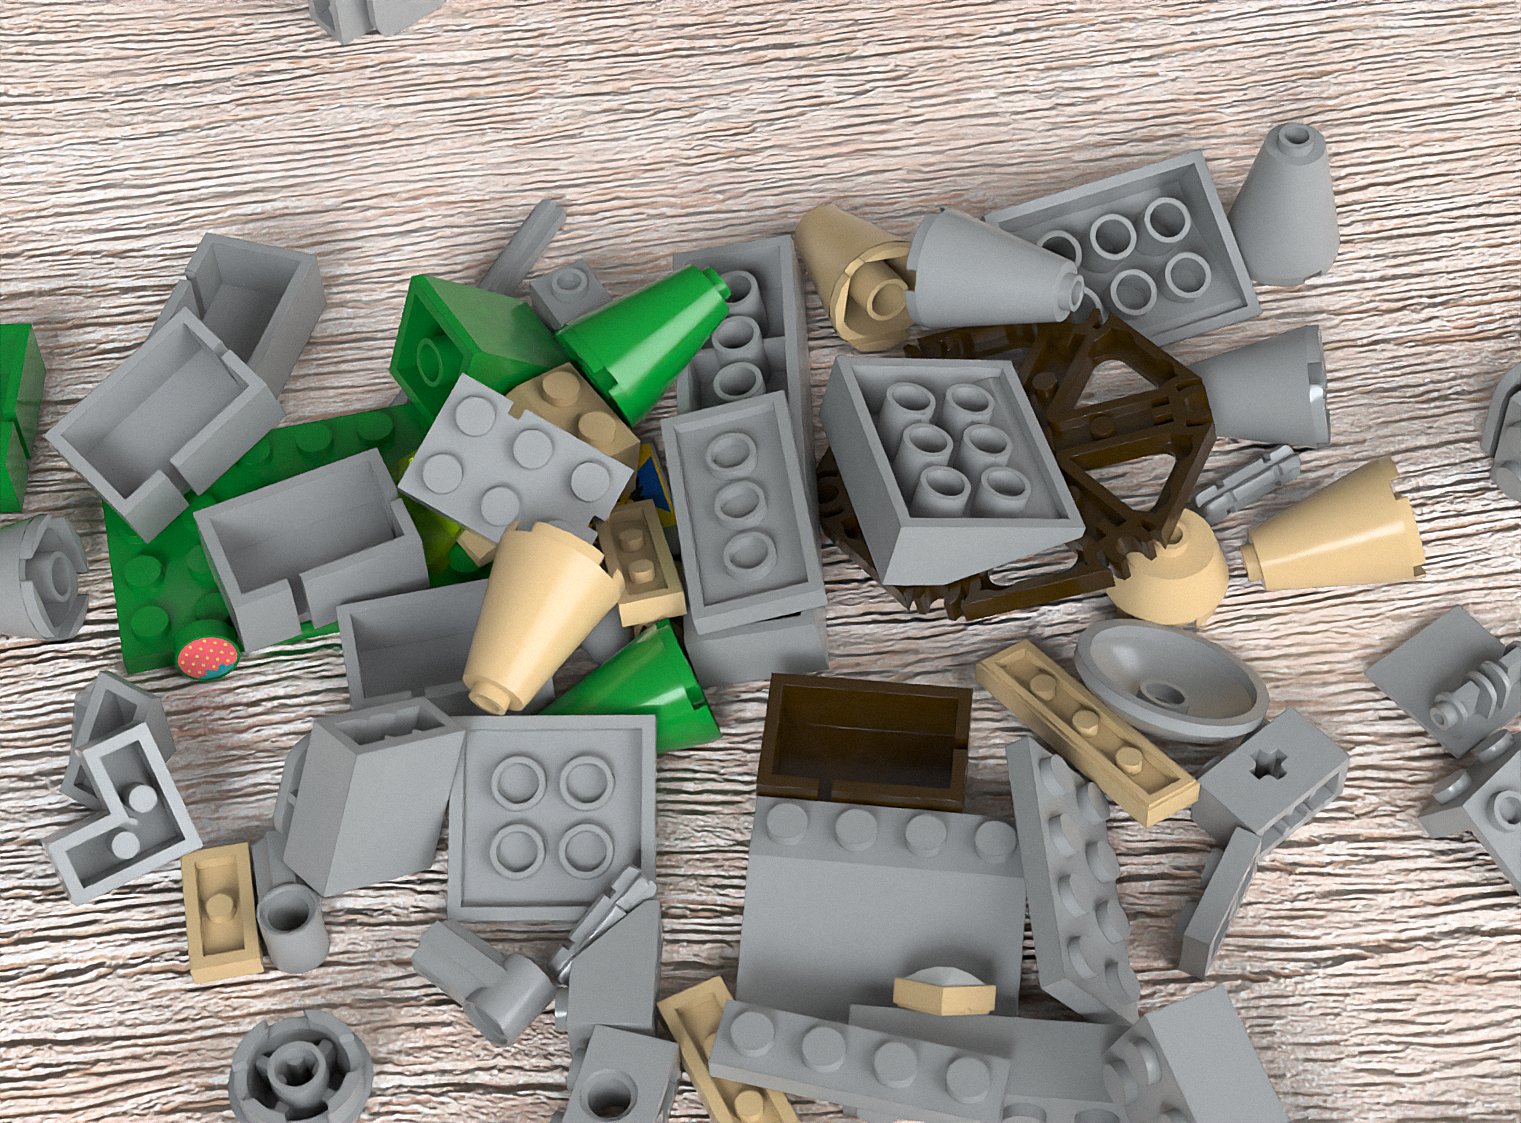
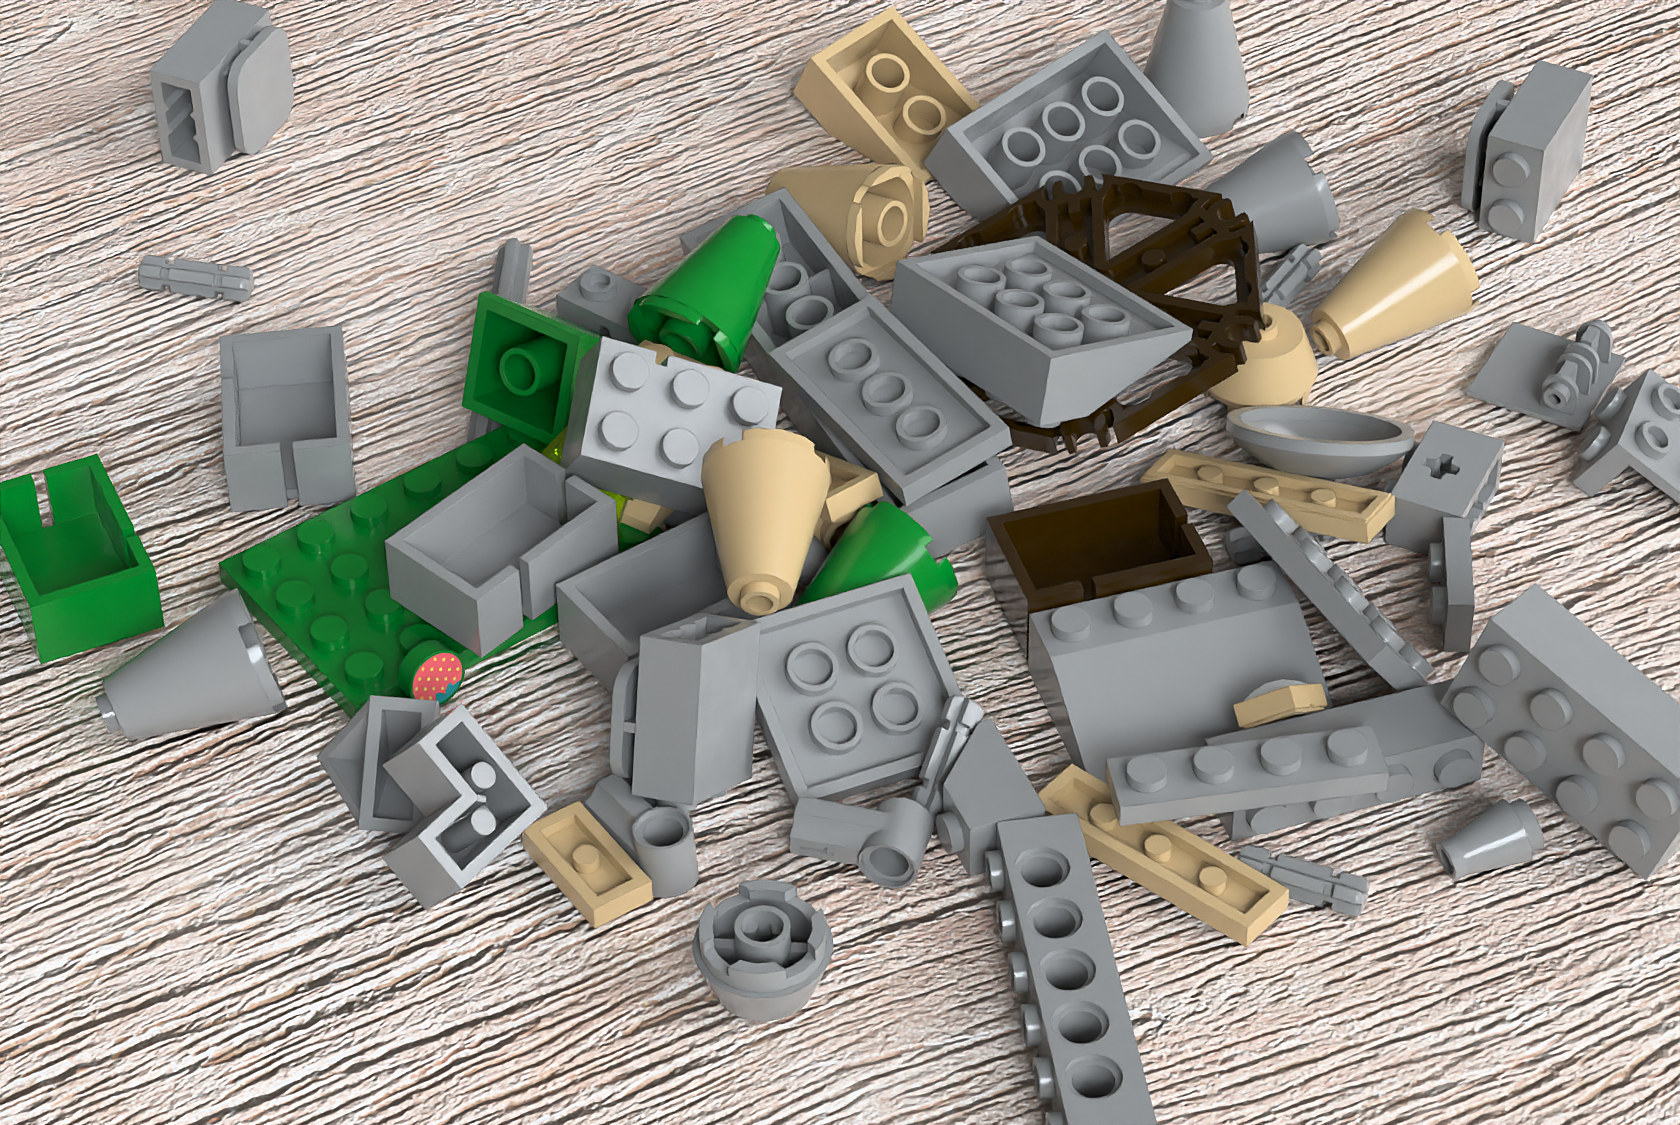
camera: 25 degrees left, 10 degrees down
(166, 424) = (303, 486): light grey piece -> none
(260, 152) = (196, 278): none -> light grey axle
(974, 143) = (884, 93): none -> tan slope
(985, 276) = (985, 172): light grey cone -> none

